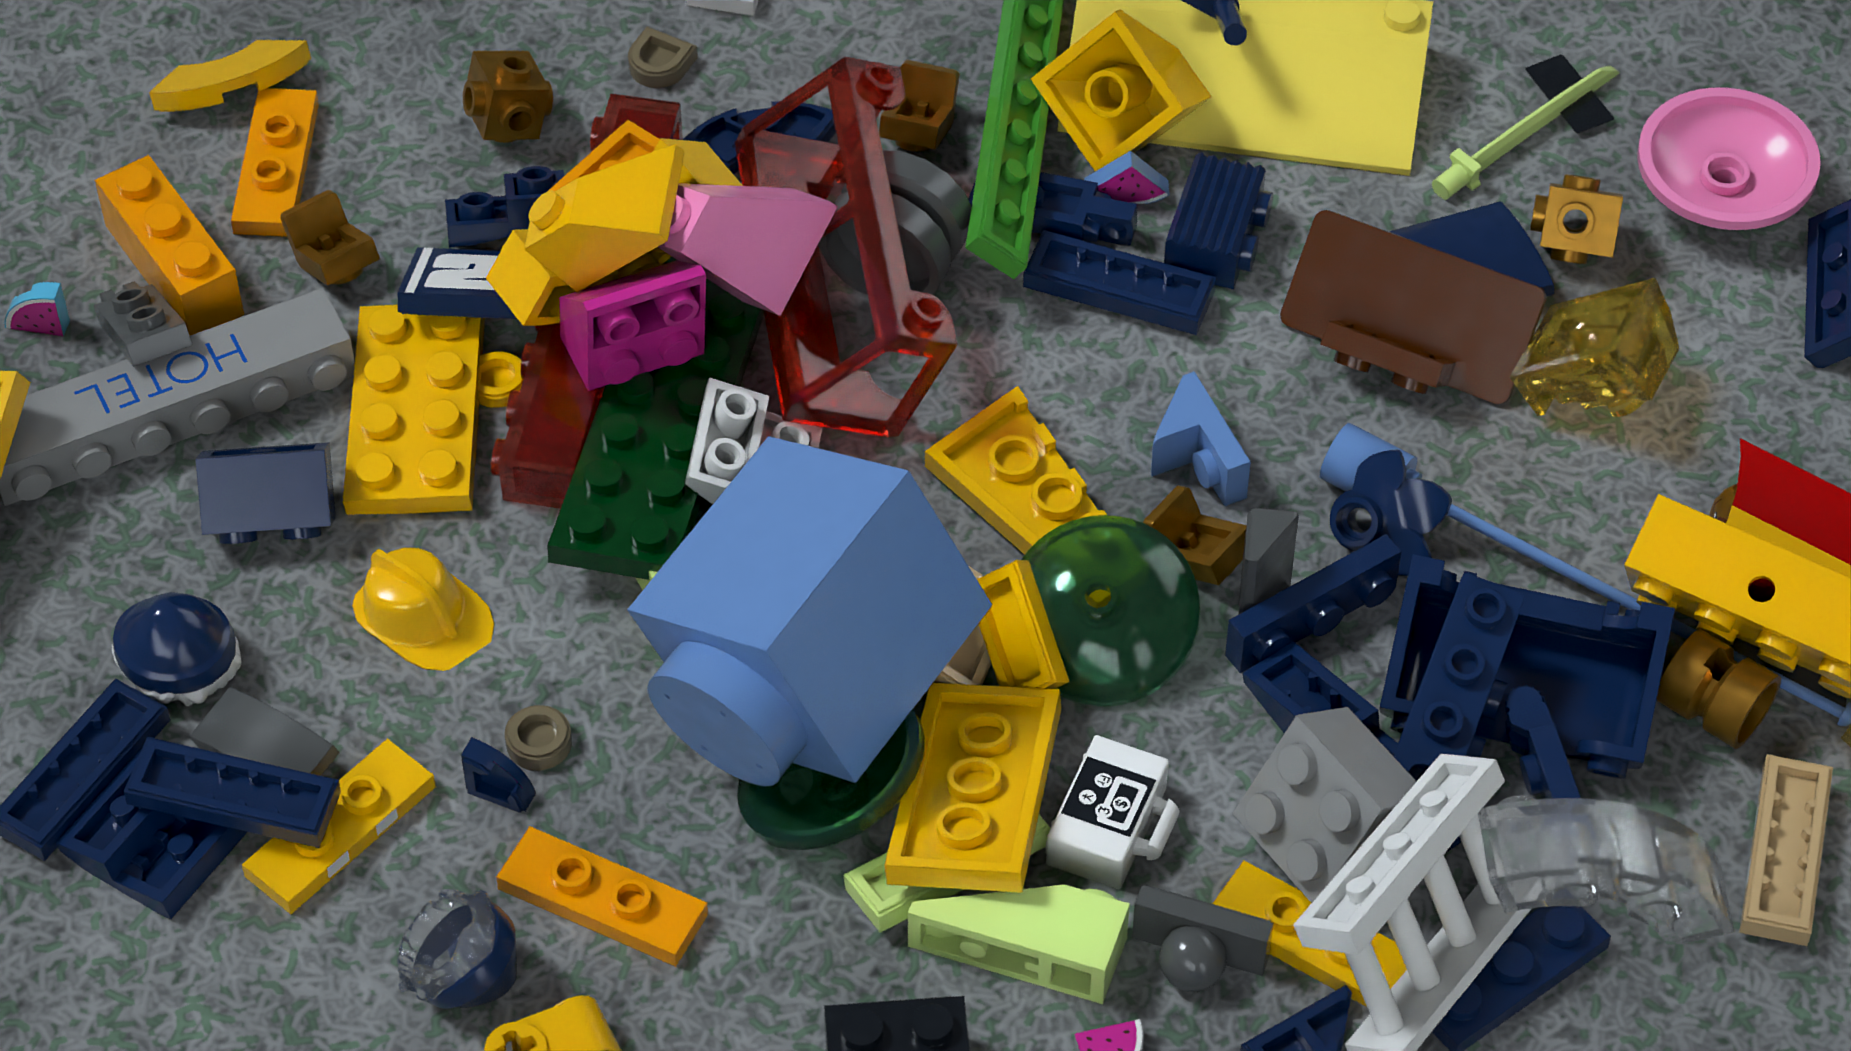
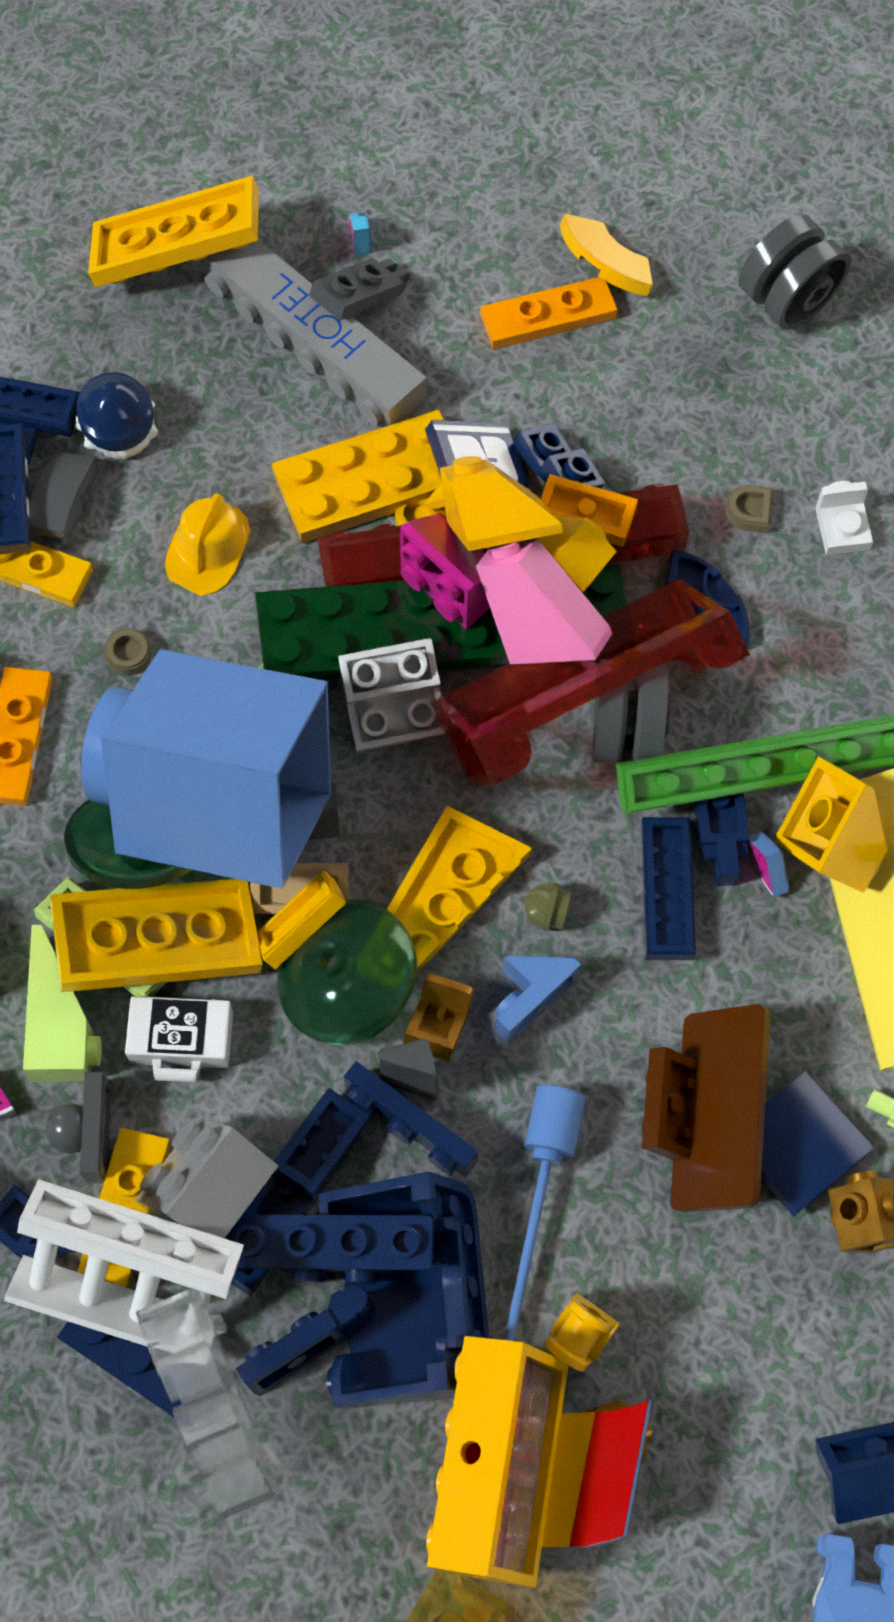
camera: 70 degrees right, 15 degrees up
(169, 245) = (435, 278): light orange brick -> none
(265, 491) = (252, 412): dark blue brick -> none
(326, 241) = (484, 369): pearl gold bracket -> none
(495, 777) = (82, 625): dark blue tile -> none
(506, 95) = (654, 422): pearl gold brick -> none
(926, 108) = (770, 695): pearl gold bracket -> none
(1097, 395) = (547, 906): none -> olive plate
(1218, 219) = (754, 938): dark blue brick -> none
(1396, 505) = (509, 1150): dark blue plate -> none
(1600, 351) = (727, 1265): clear yellow brick -> none
(1621, 503) = (580, 1333): none -> yellow piece
(1724, 692) = (412, 1460): pearl gold wheel -> none
(1786, 850) = (309, 1542): tan plate -> none

